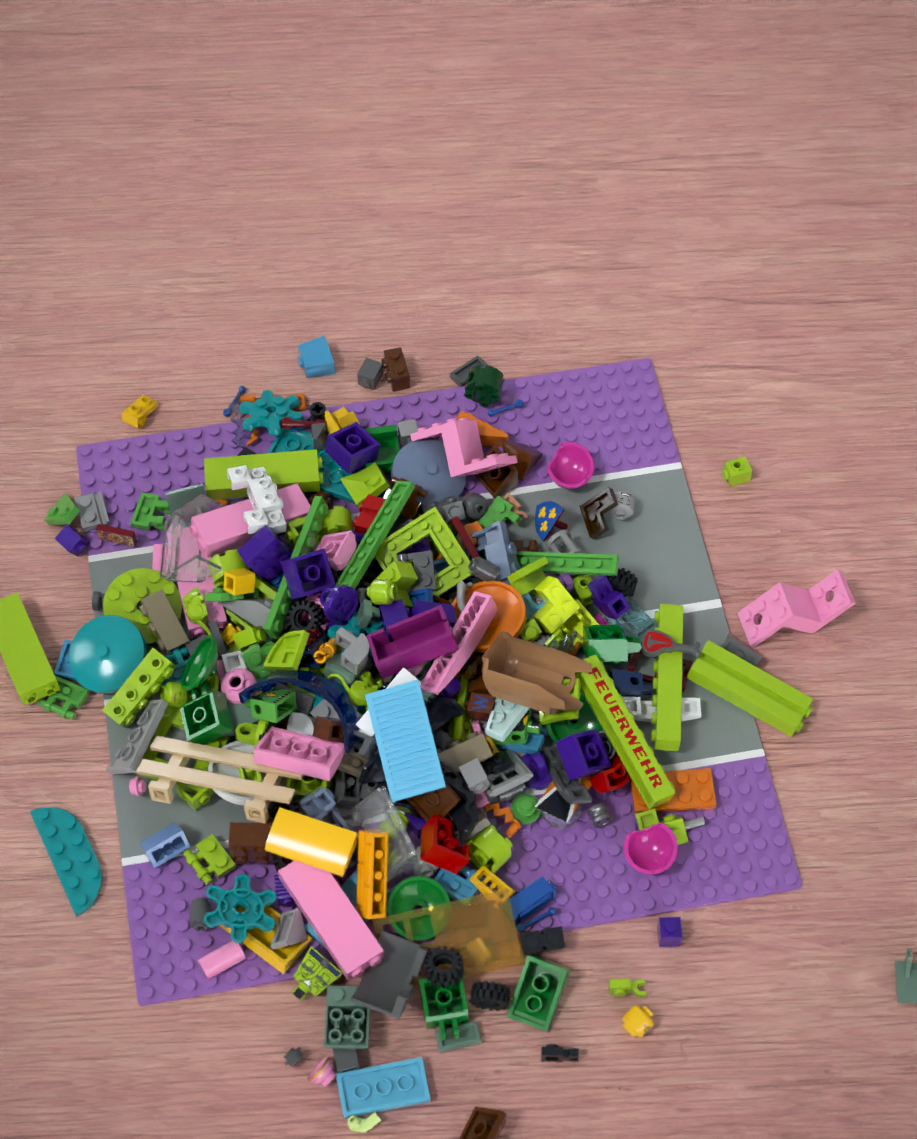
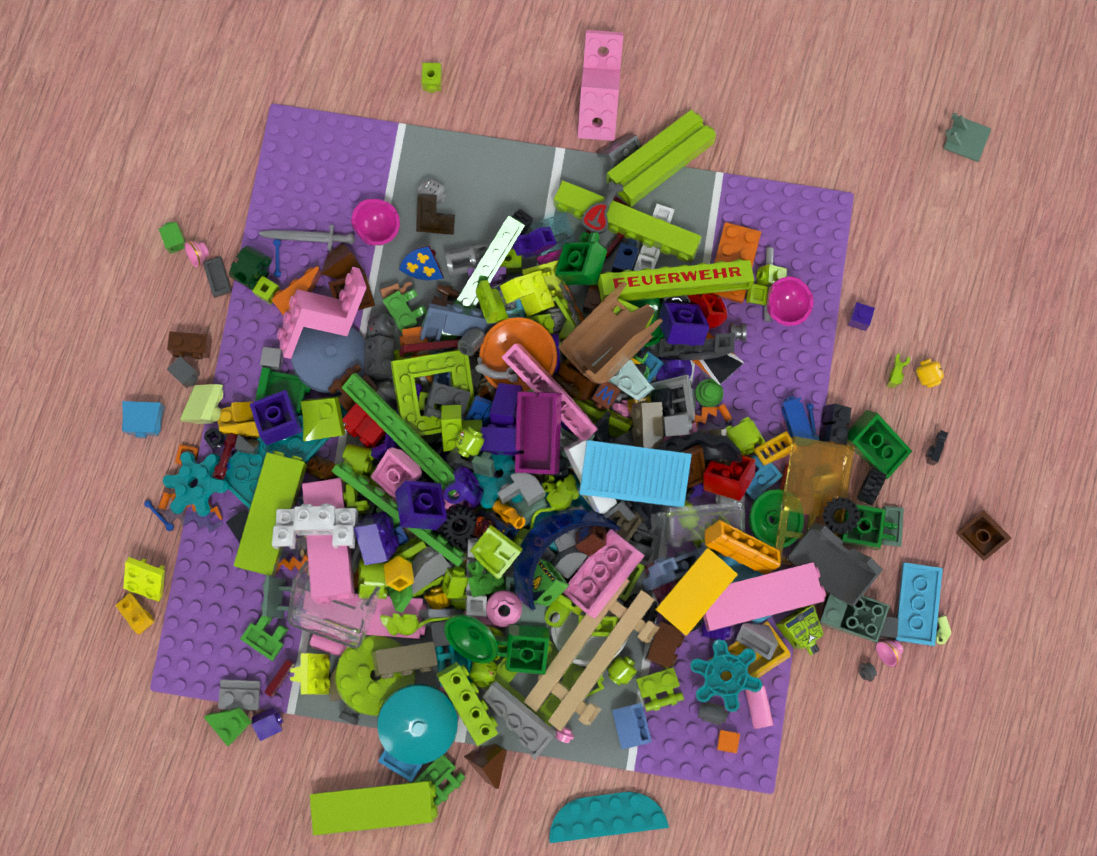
camera: 70 degrees left, 20 degrees up
(89, 730) = (489, 763): none -> reddish brown slope
(127, 555) = (313, 674): none -> neon yellow plate
(172, 405) = (144, 578): none -> neon yellow plate
(177, 940) = (728, 741): none -> orange tile
(216, 816) = (622, 670): none -> lime head
(345, 395) = (203, 404): none -> yellowish green slope
(471, 406) = (260, 288): none -> lime piece
(484, 347) = (196, 252): none -> bright pink piece
(490, 325) = (172, 237): none -> bright green brick
(538, 430) = (310, 236): none -> light grey sword

